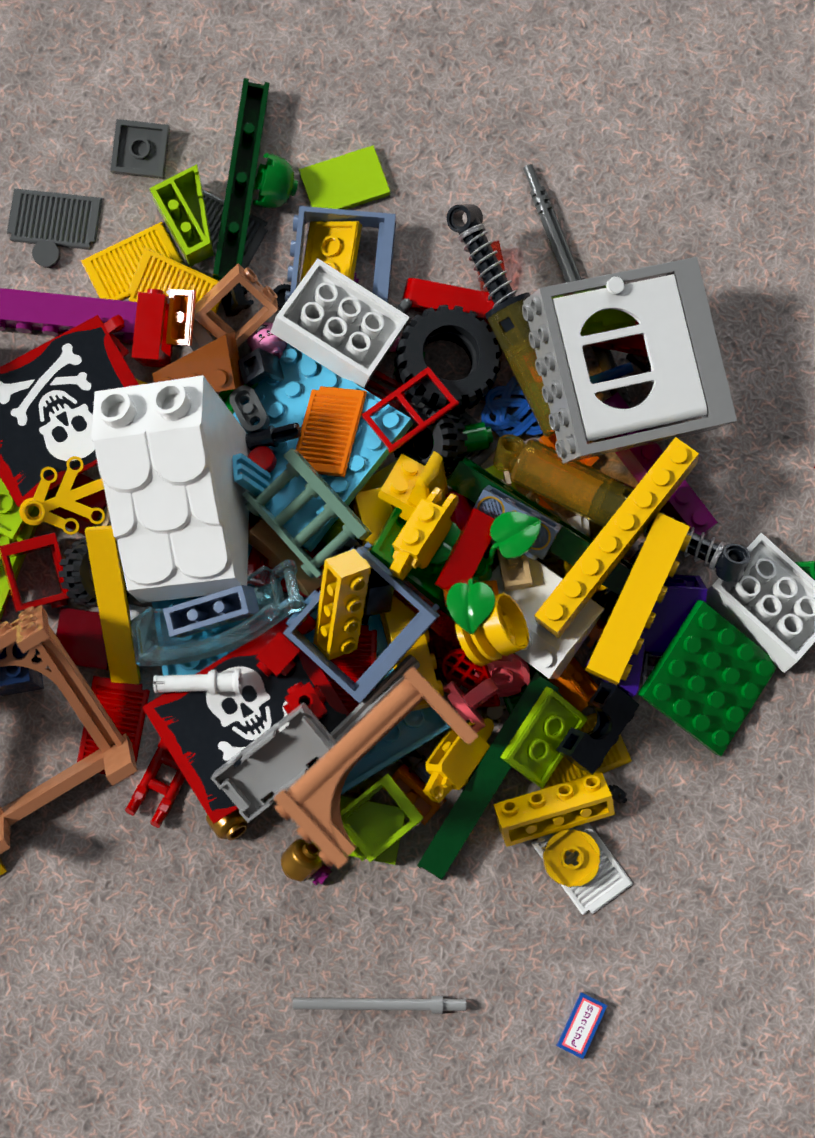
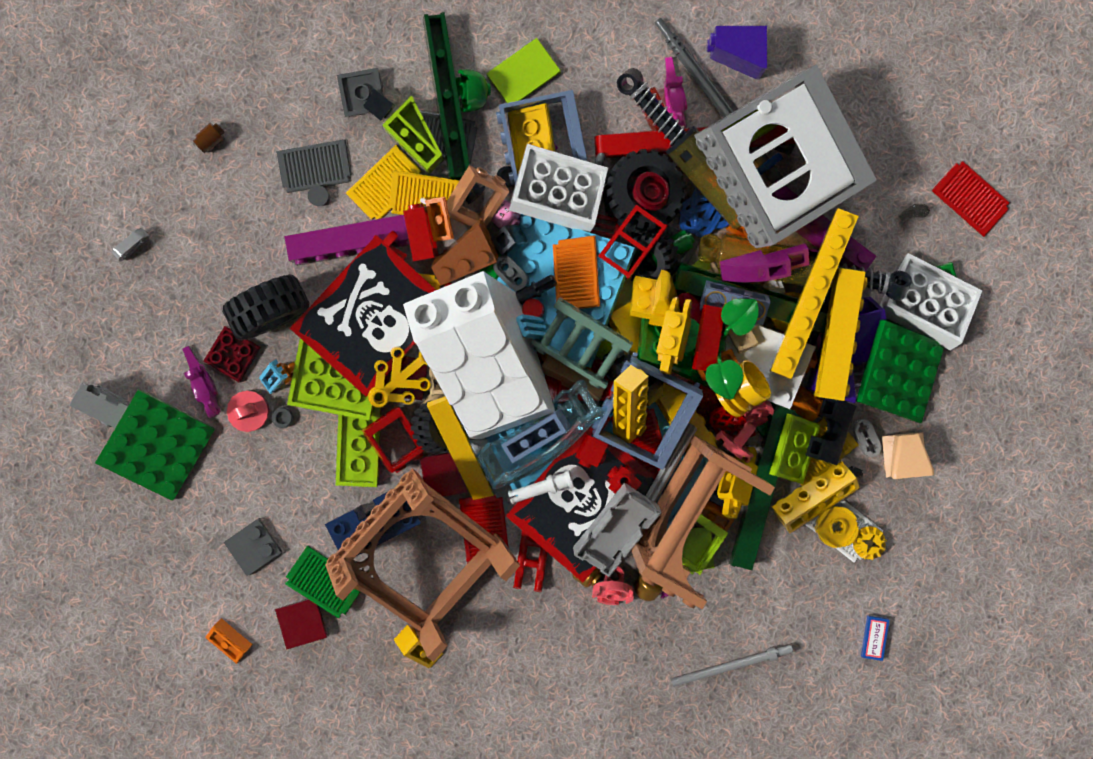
camera: 25 degrees left, 10 degrees up
(155, 167) = (378, 105): none -> black panel
(252, 853) = (613, 591): none -> coral tile
(452, 355) = (651, 191): none -> dark red piece
(522, 257) = (674, 93): none -> dark pink animal
(566, 487) = (760, 267): none -> magenta slope
(595, 894) = (867, 533): none -> yellow gear
(616, 223) = (740, 48): none -> dark purple slope
(651, 753) = (862, 440): none -> light grey beam
(688, 790) = (906, 456): none -> light nougat piece
(785, 484) = (915, 210): none -> clear smoke arm

